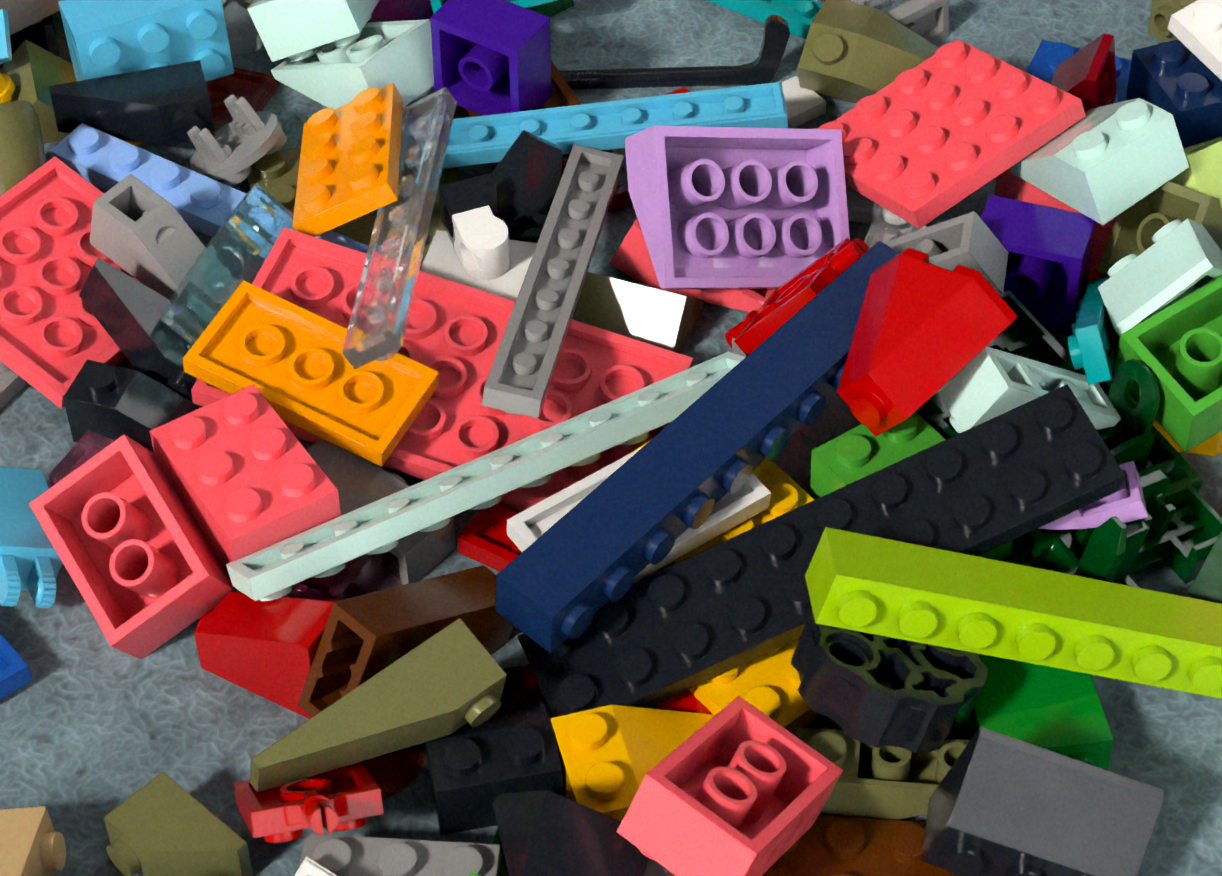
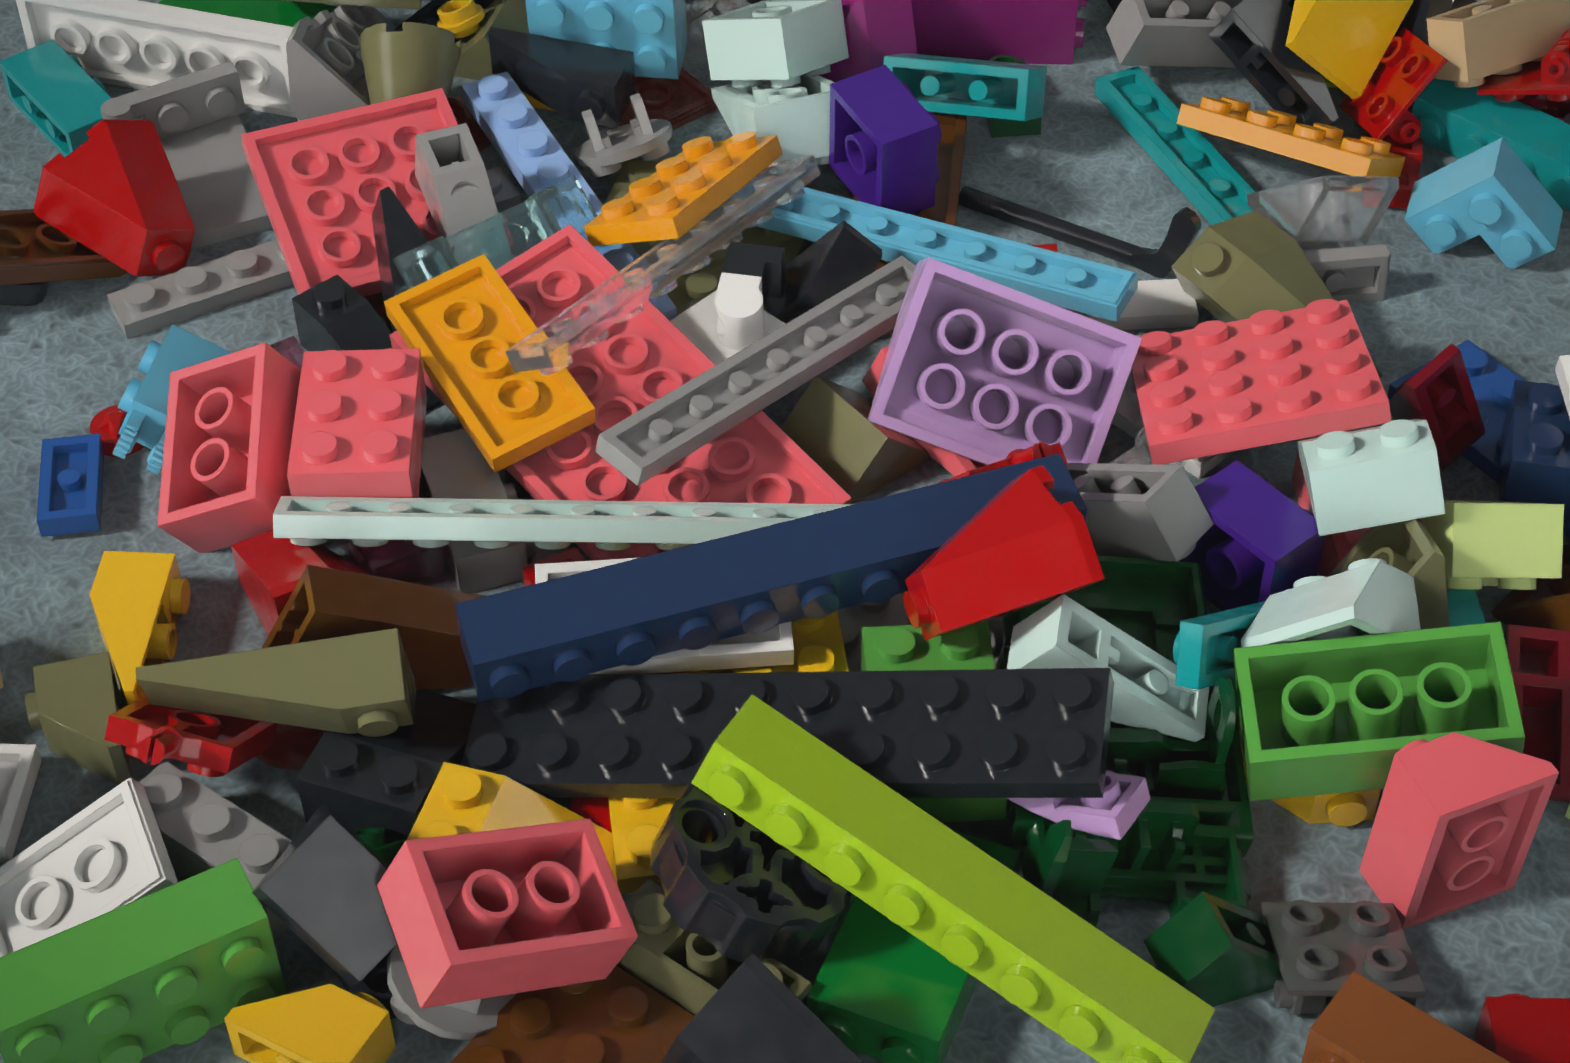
camera: 30 degrees right, 0 degrees up
(142, 736) = (137, 610): none -> yellow slope

